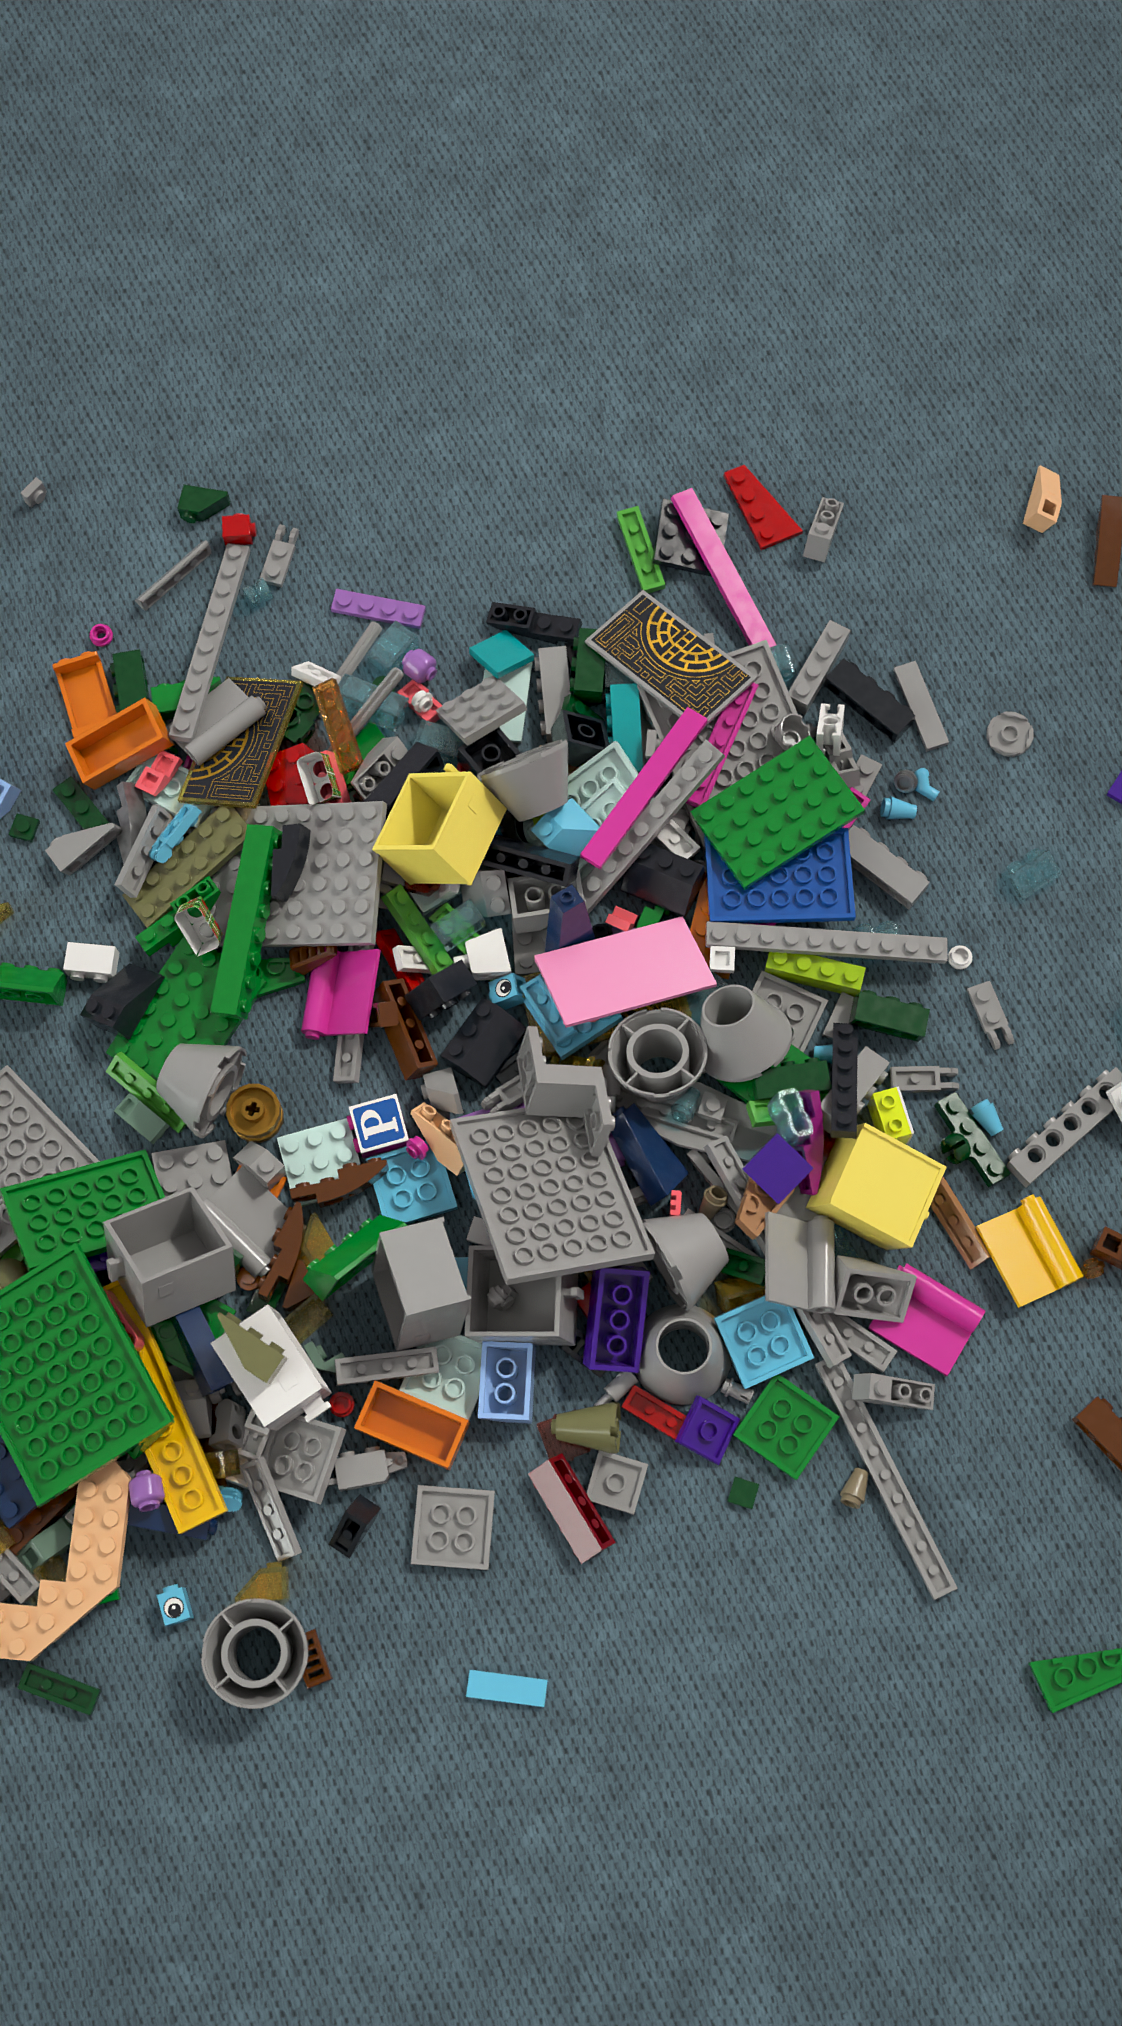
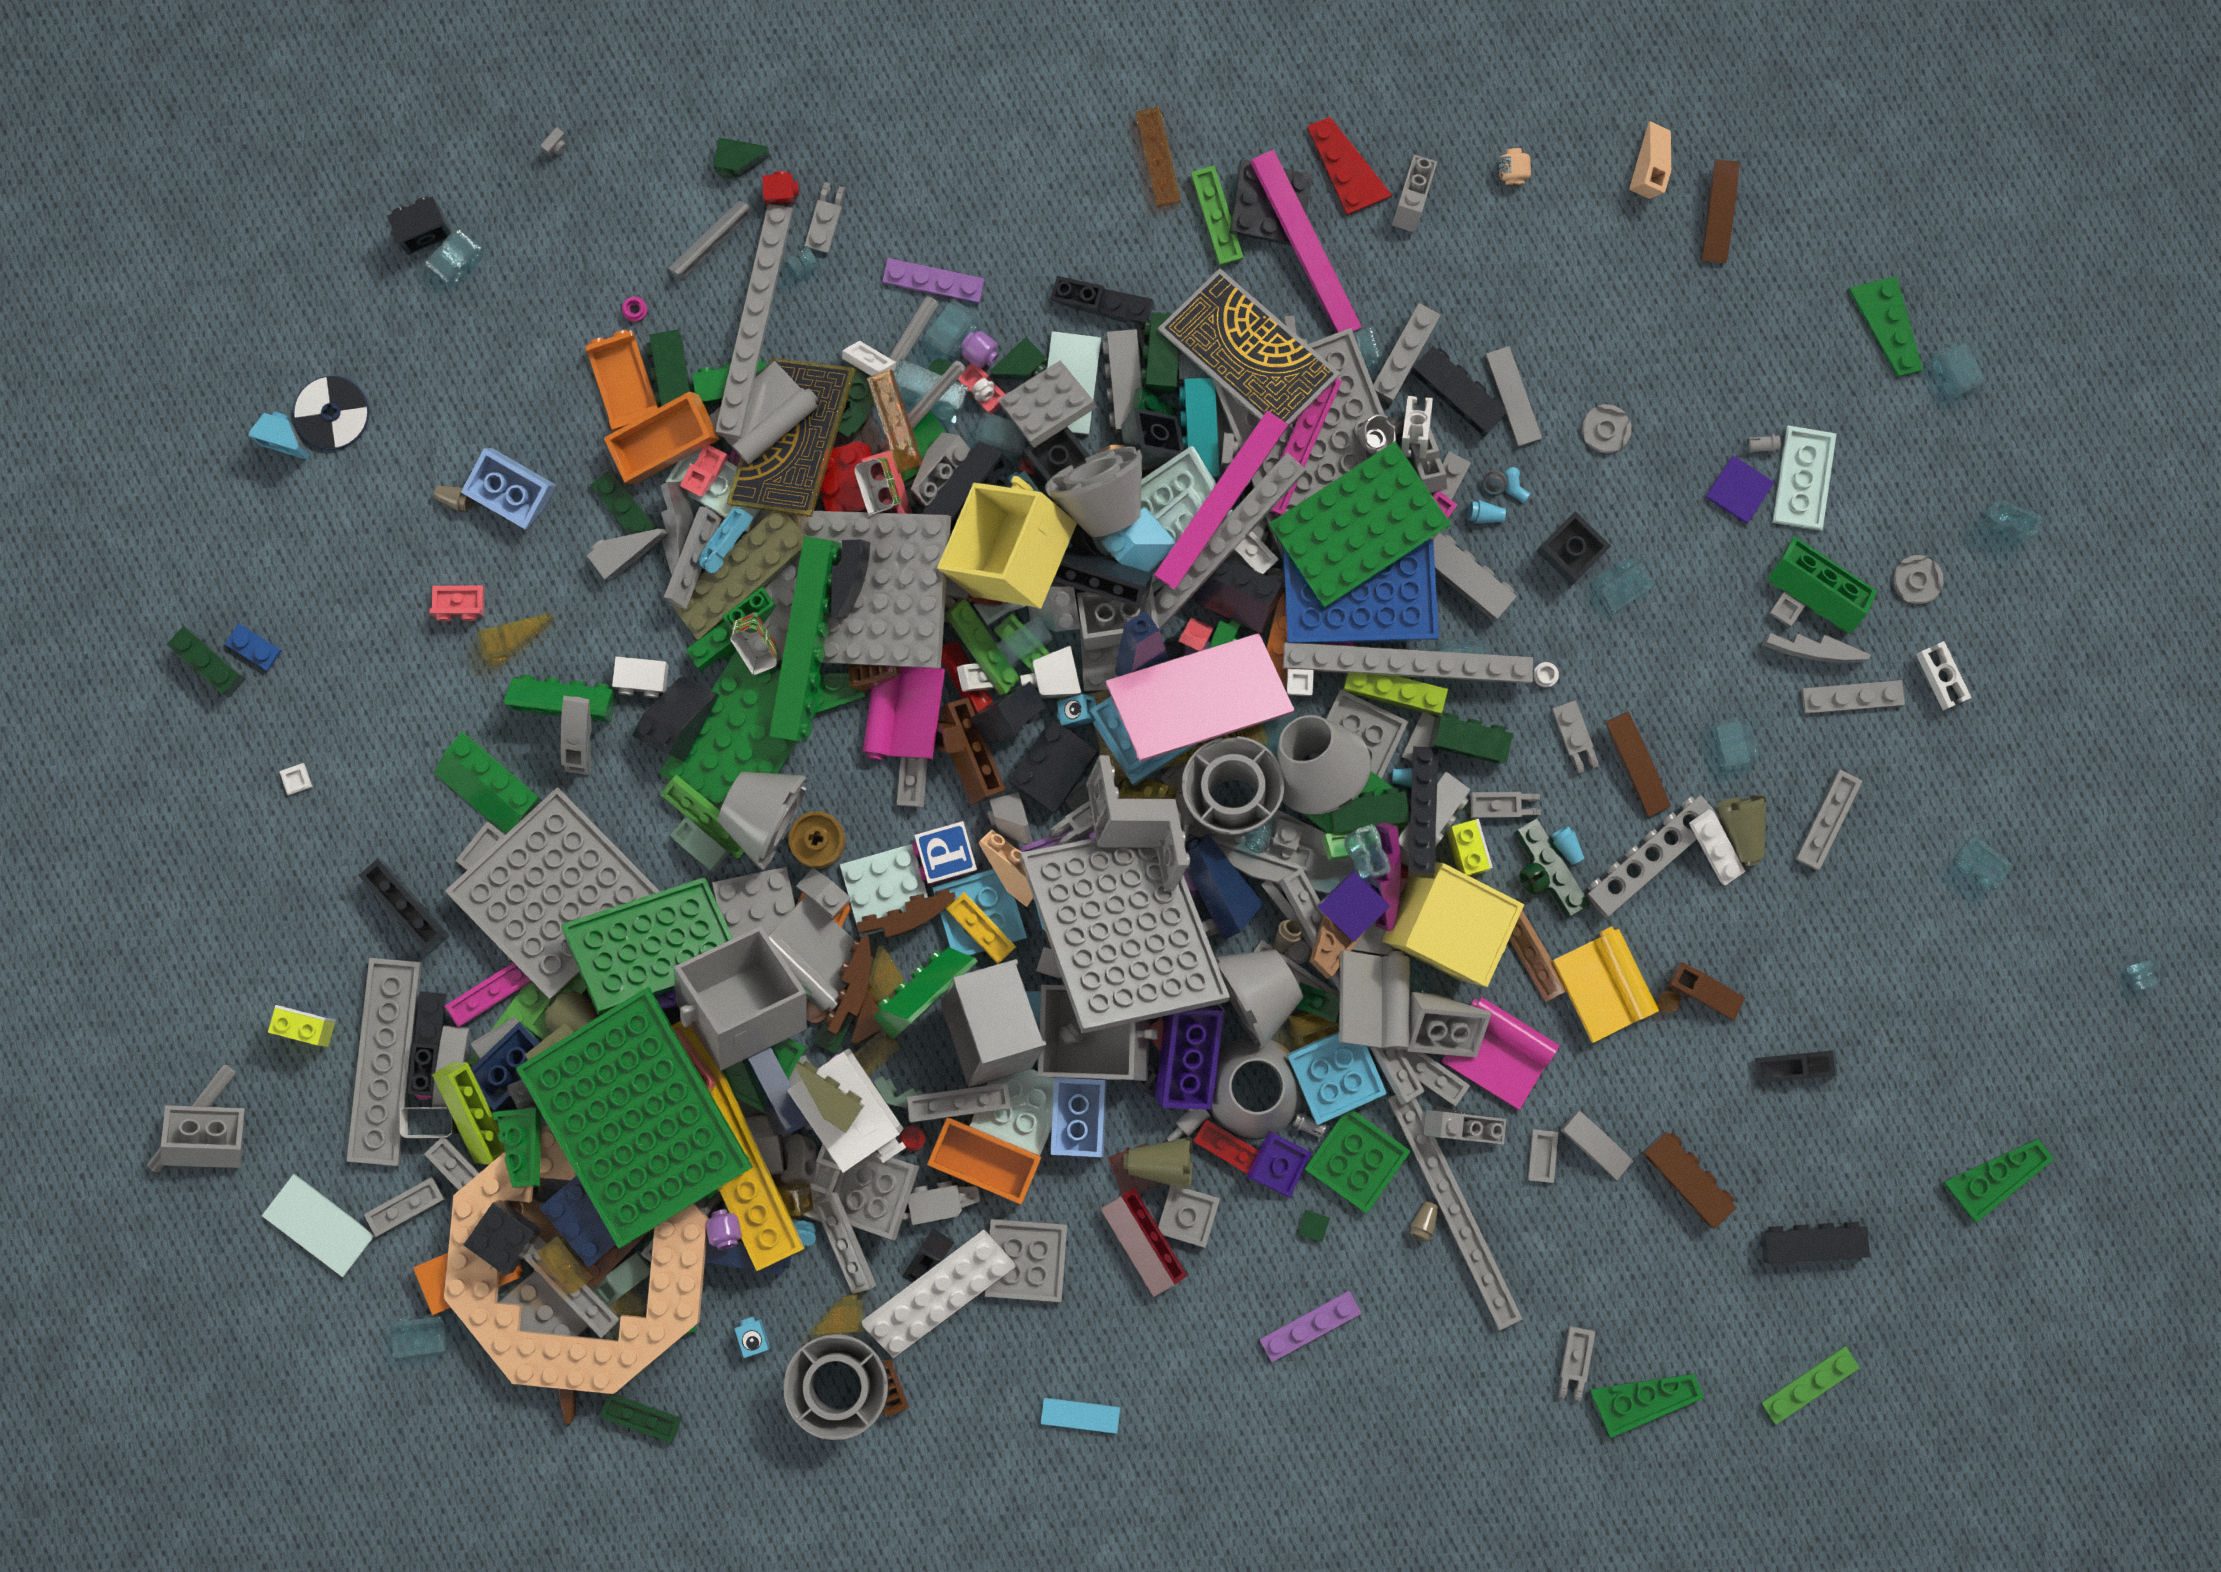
camera: 10 degrees left, 10 degrees up
(23, 1012) = (576, 735): none -> light grey slope
(24, 827) = (561, 527): dark green plate -> none
(363, 1560) = (938, 1294): none -> white plate
(410, 1194) = (981, 928): none -> yellow tile
(417, 1148) = (985, 878): dark pink plate -> none
(456, 678) = (1020, 362): none -> dark green slope
(501, 654) = (1067, 337): teal tile -> none
(586, 500) = (1158, 157): none -> clear orange plate
(675, 1203) = (1249, 940): coral tile -> none
(741, 1596) = (1310, 1326): none -> medium lavender plate
(915, 505) = (1514, 166): none -> light nougat head
(972, 1422) = (1543, 1156): none -> light grey tile
(982, 839) = (1573, 548): none -> black brick
(1014, 1632) = (1576, 1360): none -> light grey hinge
(1026, 1410) = (1597, 1144): none -> light grey slope
(1052, 1039) = (1637, 763): none -> reddish brown slope

